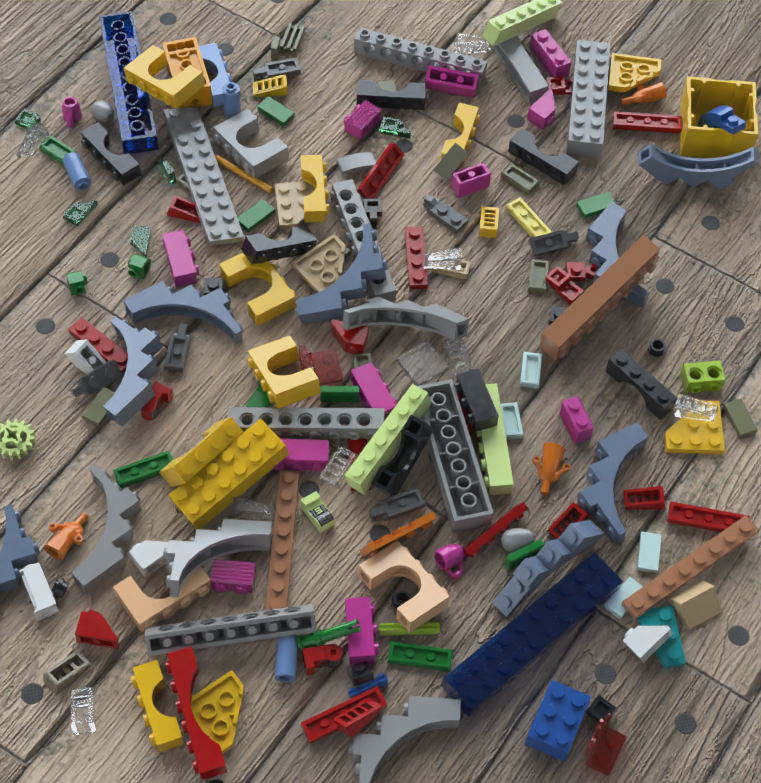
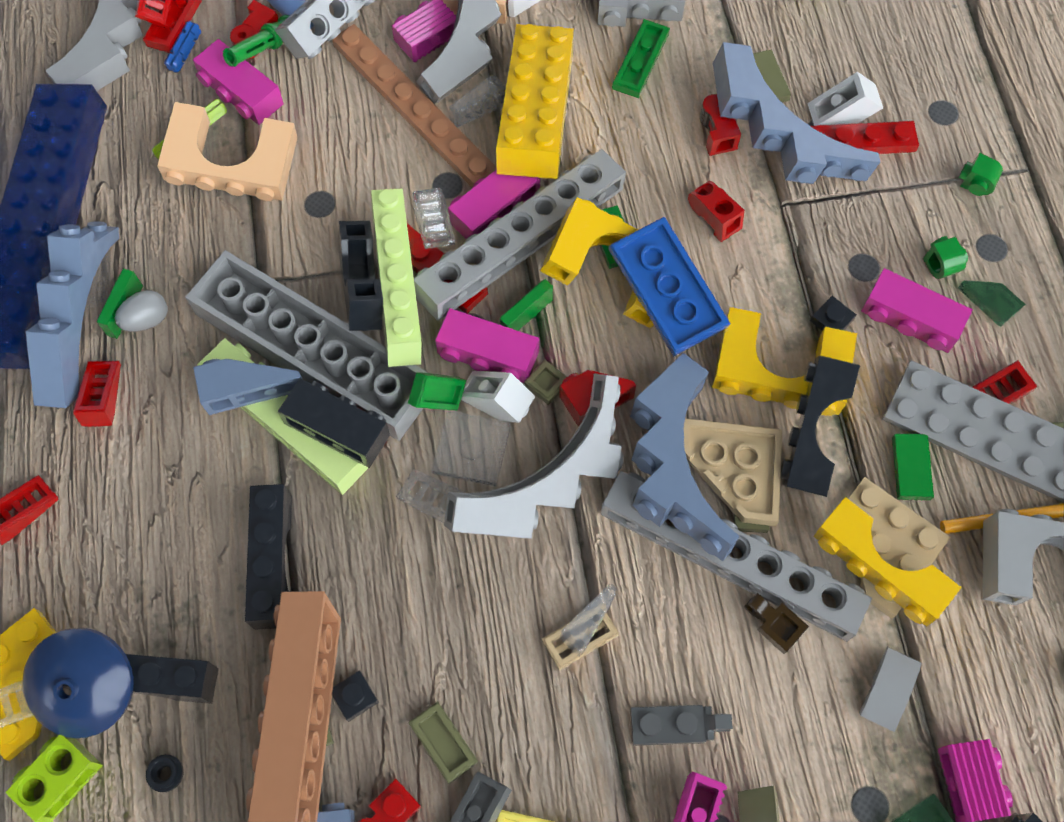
camera: 140 degrees right, 10 degrees up
(97, 379) = (807, 90): dark grey hinge -> none
(161, 300) = (831, 266): sand blue arch -> none
(178, 350) = (770, 203): dark grey hinge -> none
(205, 365) = (717, 209): none -> red leg
(215, 440) = (586, 69): yellow arch -> none
(274, 338) = (669, 286): none -> blue tile
(317, 512) = (405, 158): yellowish green leg -> none
(323, 363) = (590, 321): clear red bracket -> none
(360, 673) = (196, 43): black plate -> none
(380, 172) = (840, 704): red plate -> none
(392, 370) = (498, 395): none -> white slope
(397, 505) = (321, 241): dark grey hinge -> none
(400, 595) = (220, 143): black plate -> none
(405, 531) = (289, 195): orange wing -> none
(415, 257) = (643, 607): plate -> none
(420, 656) = (150, 117): green tile -> none
(421, 380) = (436, 391): none -> green tile
(449, 557) = (206, 229): dark pink piece -> none
(489, 231) = (614, 768): yellow slope -> none
(500, 525) = (178, 315): red plate -> none
(504, 451) = (236, 383): none -> sand blue slope
(512, 421) = (285, 468): light aqua tile -> none
(531, 370) = (321, 568): light aqua tile -> none
(548, 472) = (181, 451): orange piece -> none
(560, 373) = (267, 533): none -> black arch
(561, 283) = (388, 757): red slope -> none
(576, 420) = (190, 535): dark pink brick -> none
(599, 496) = (102, 531): sand blue arch -> none
(668, 387) = (92, 669): none -> dark blue dish

